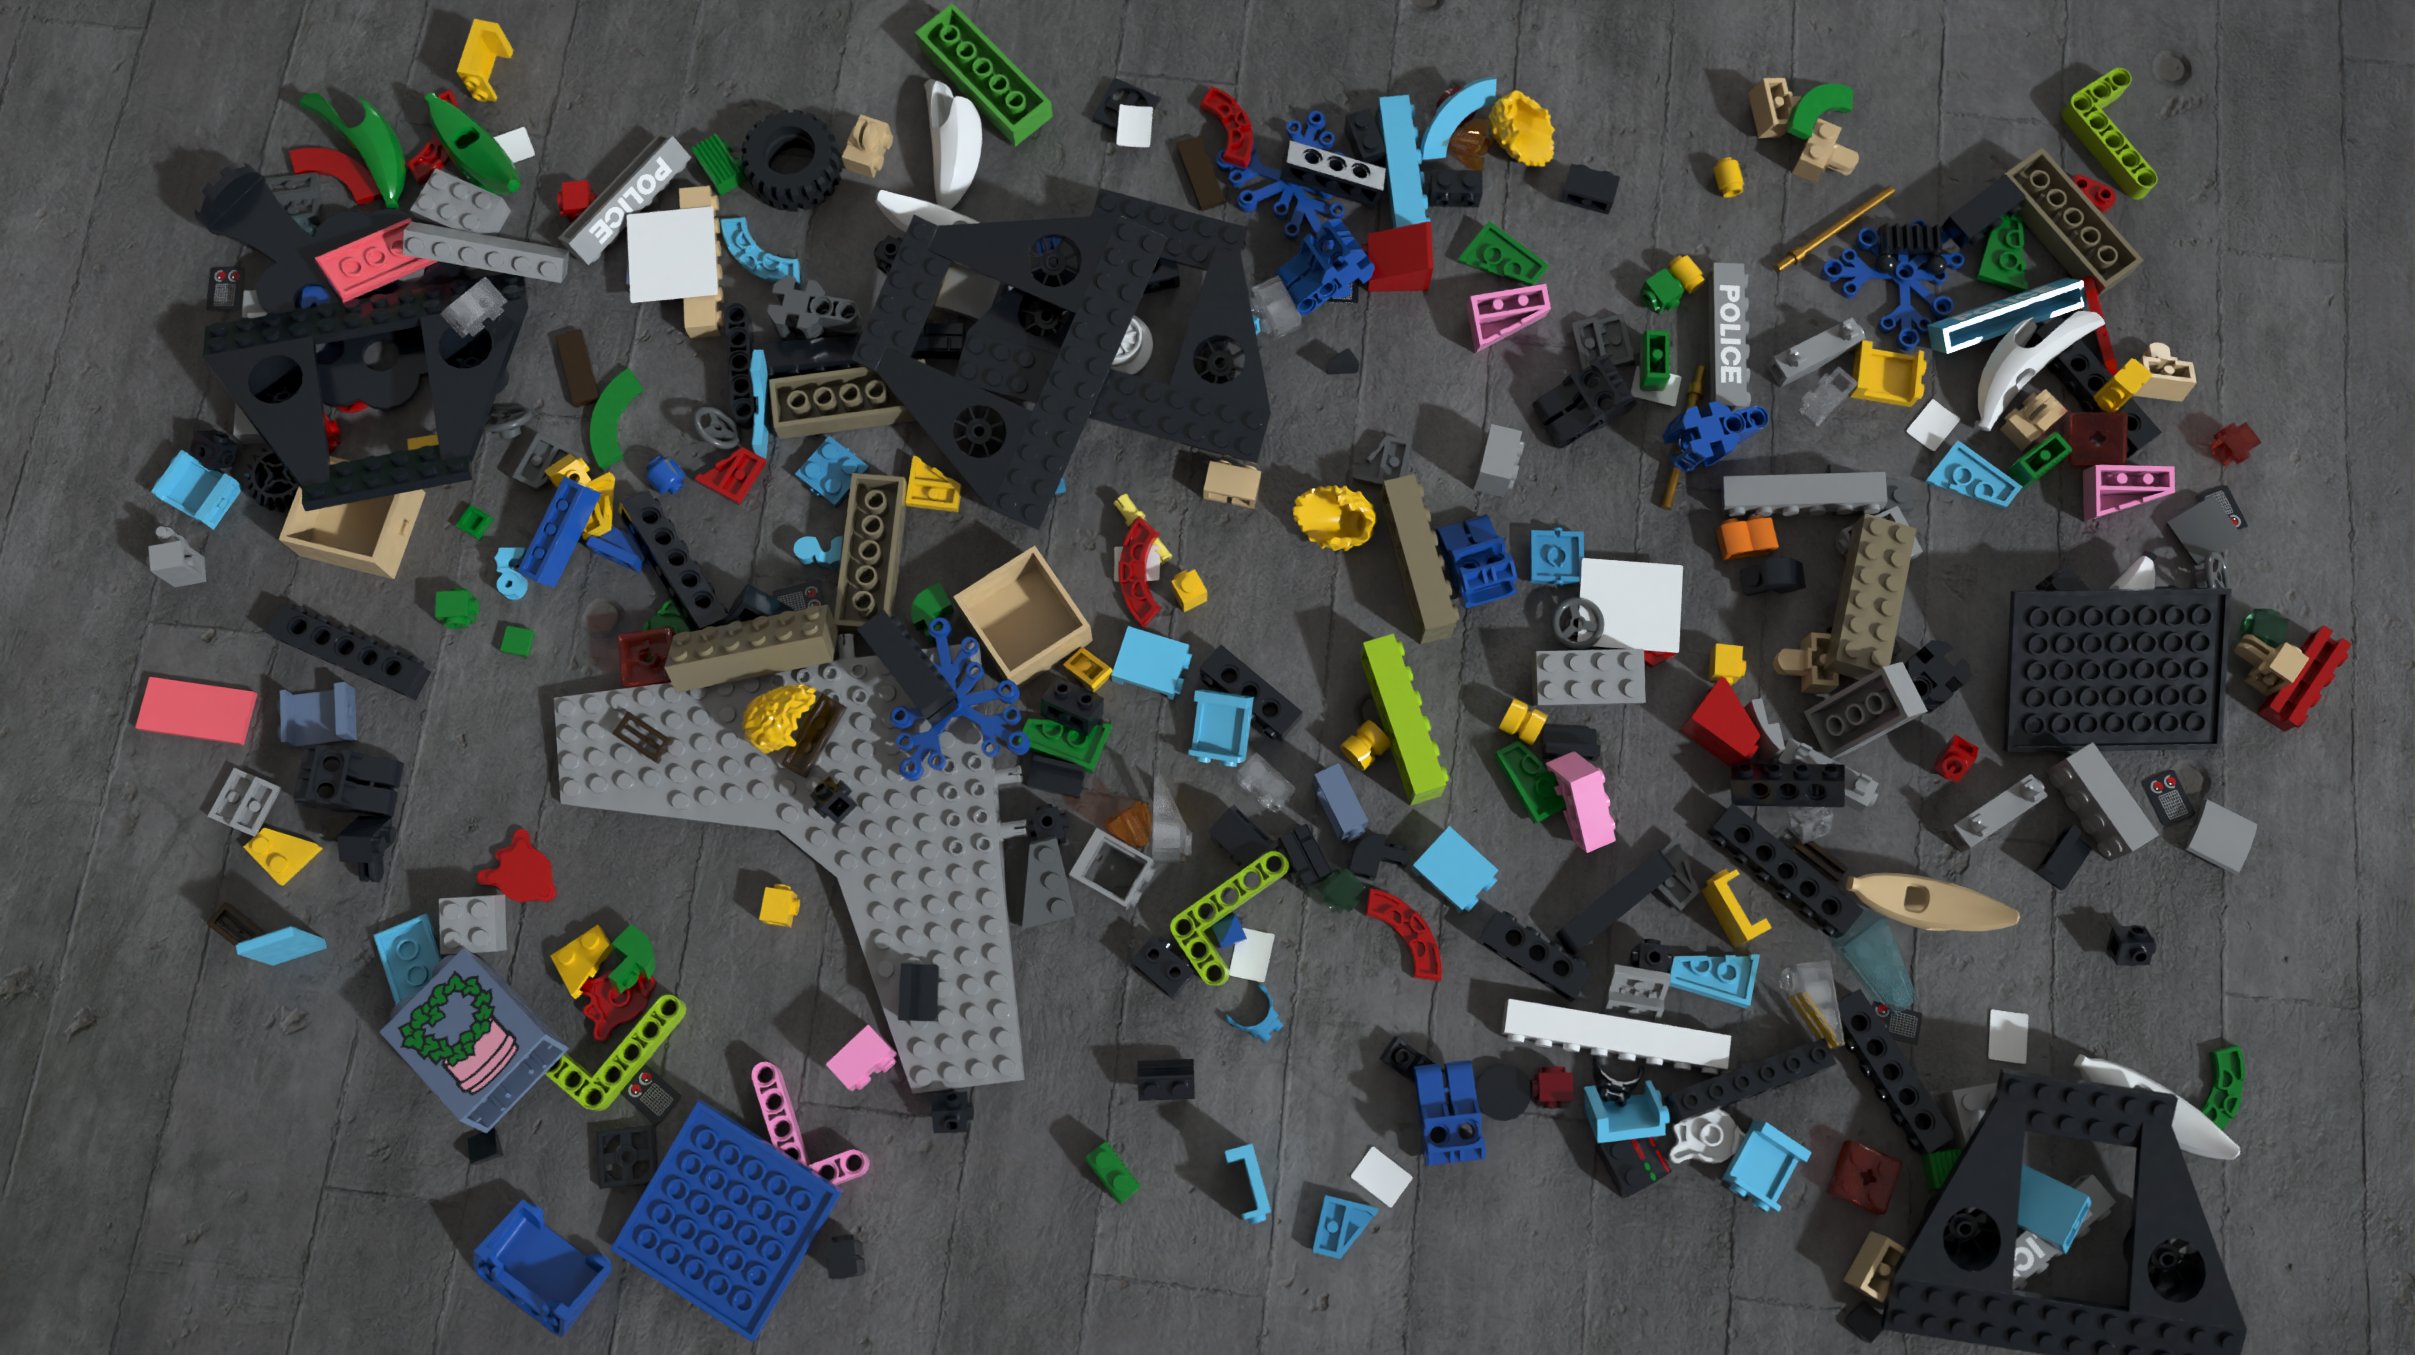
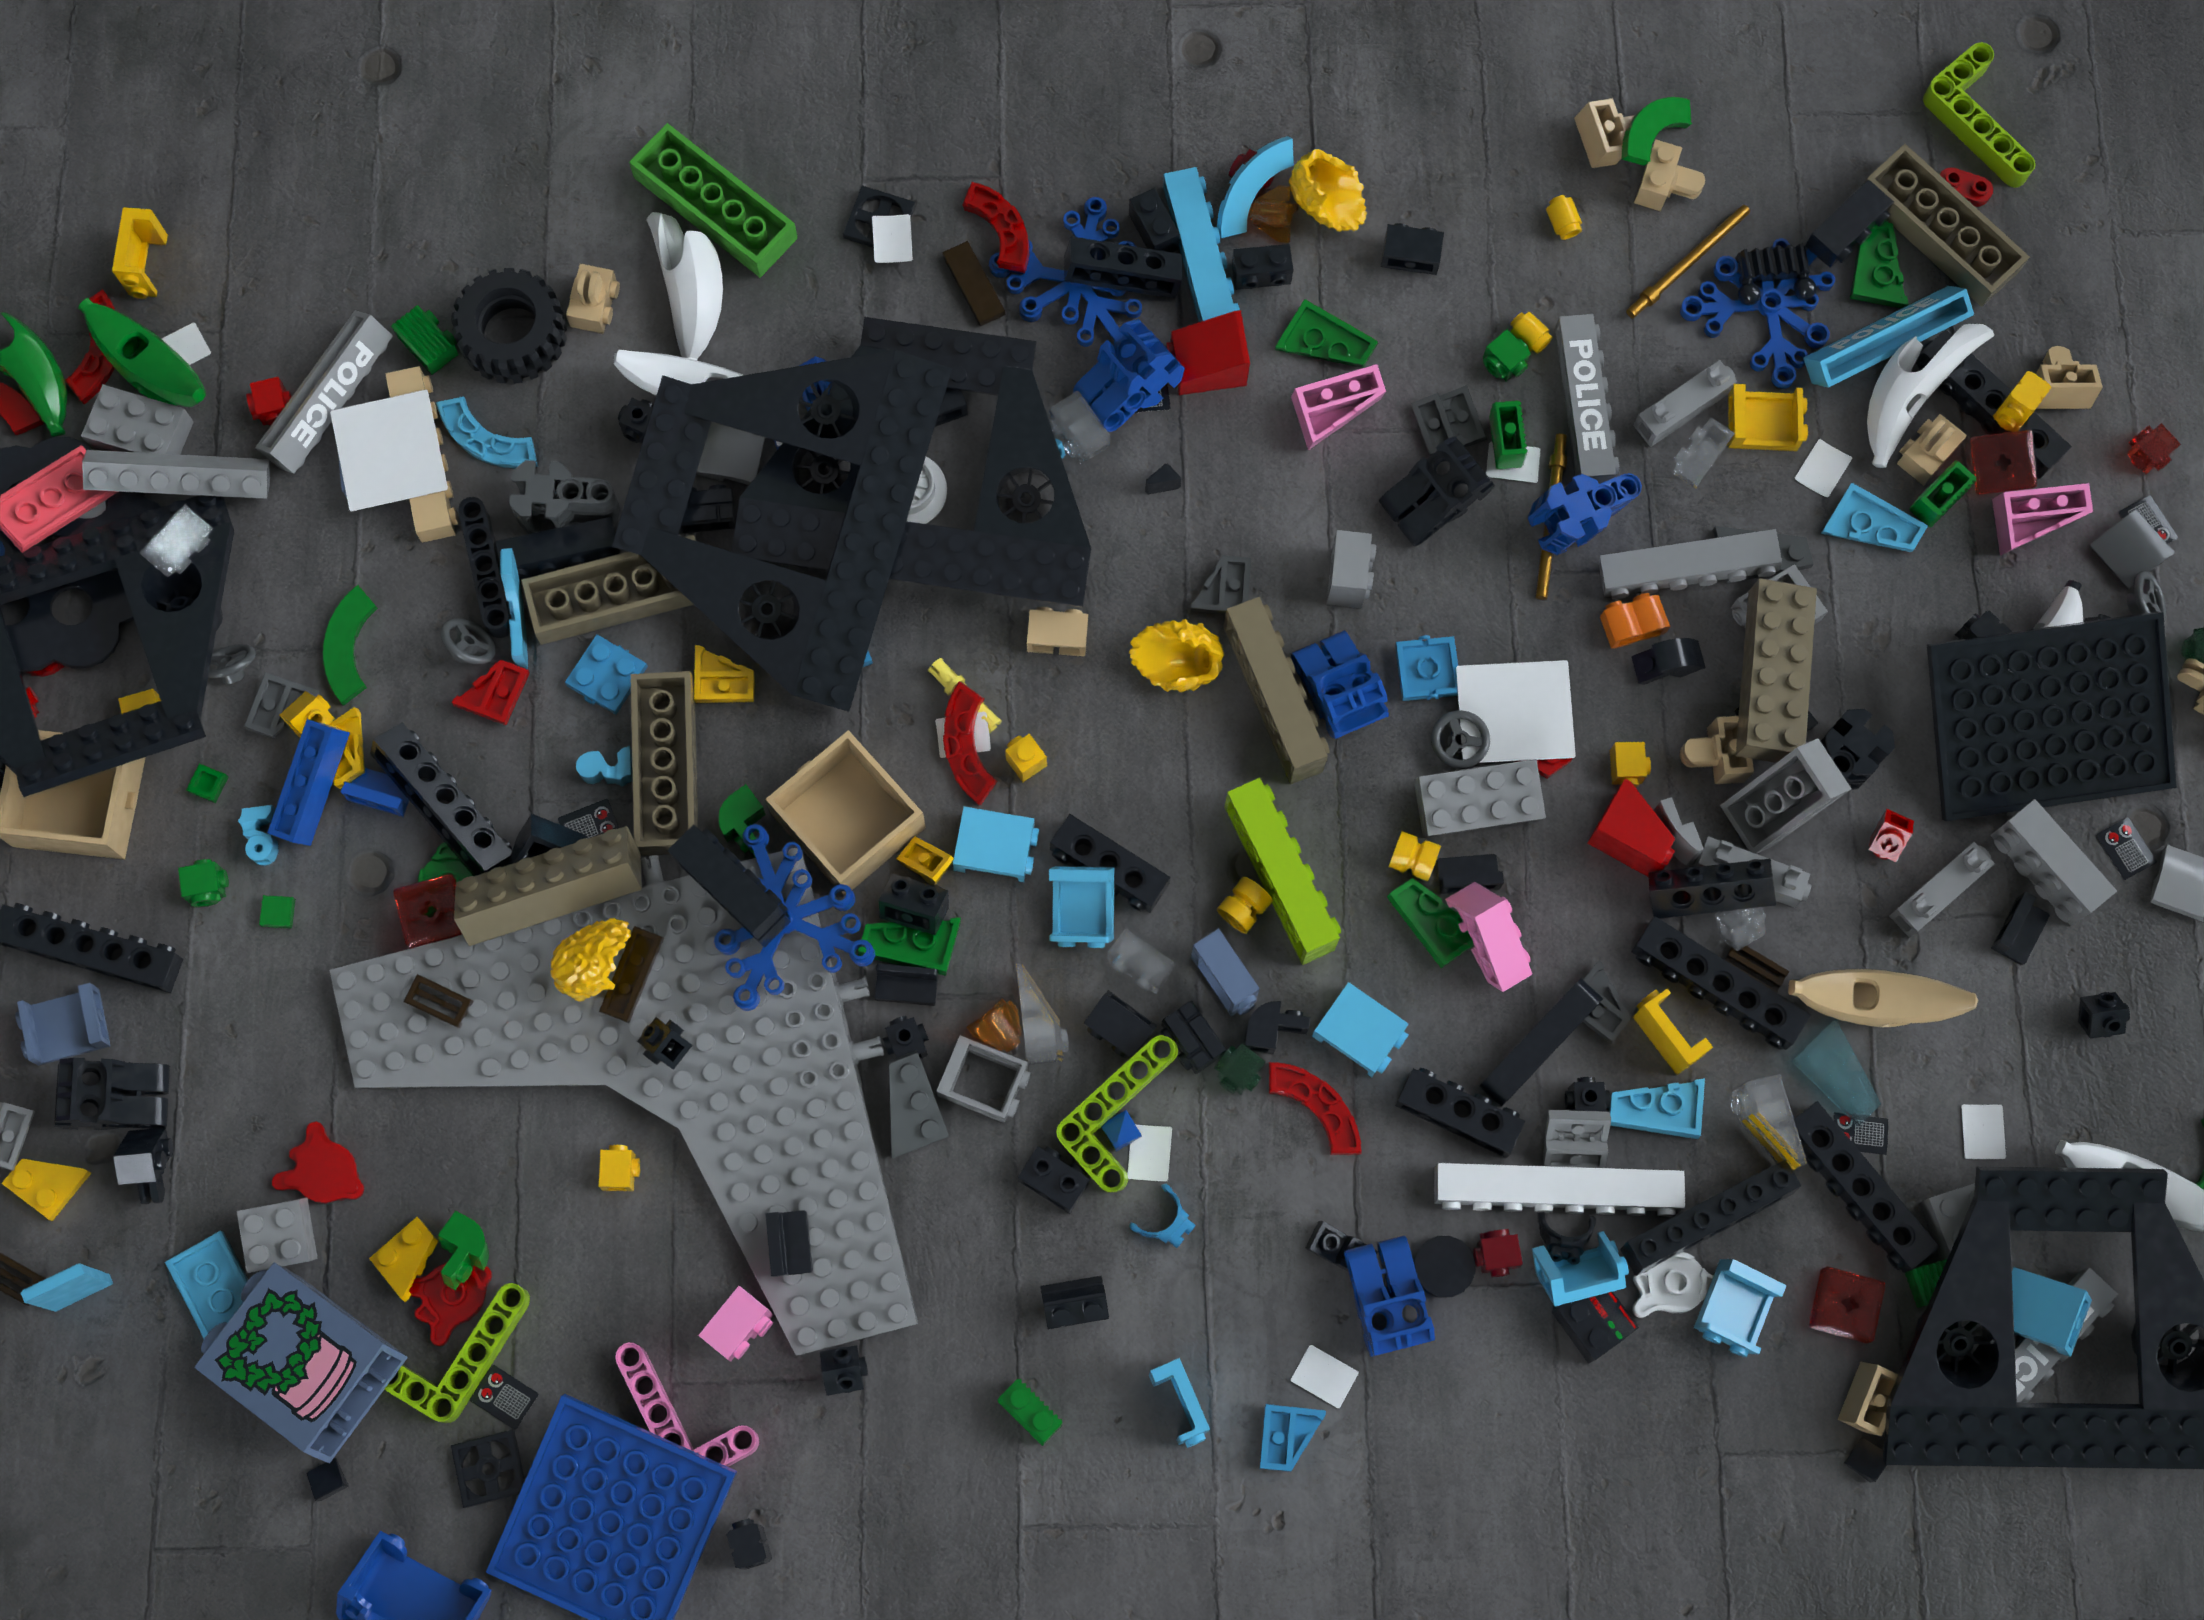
camera: 10 degrees left, 0 degrees up
(578, 368) = (299, 592): dark brown tile -> none
(665, 475) = (417, 702): blue head -> none
(2102, 334) = (1995, 343): red tile -> none

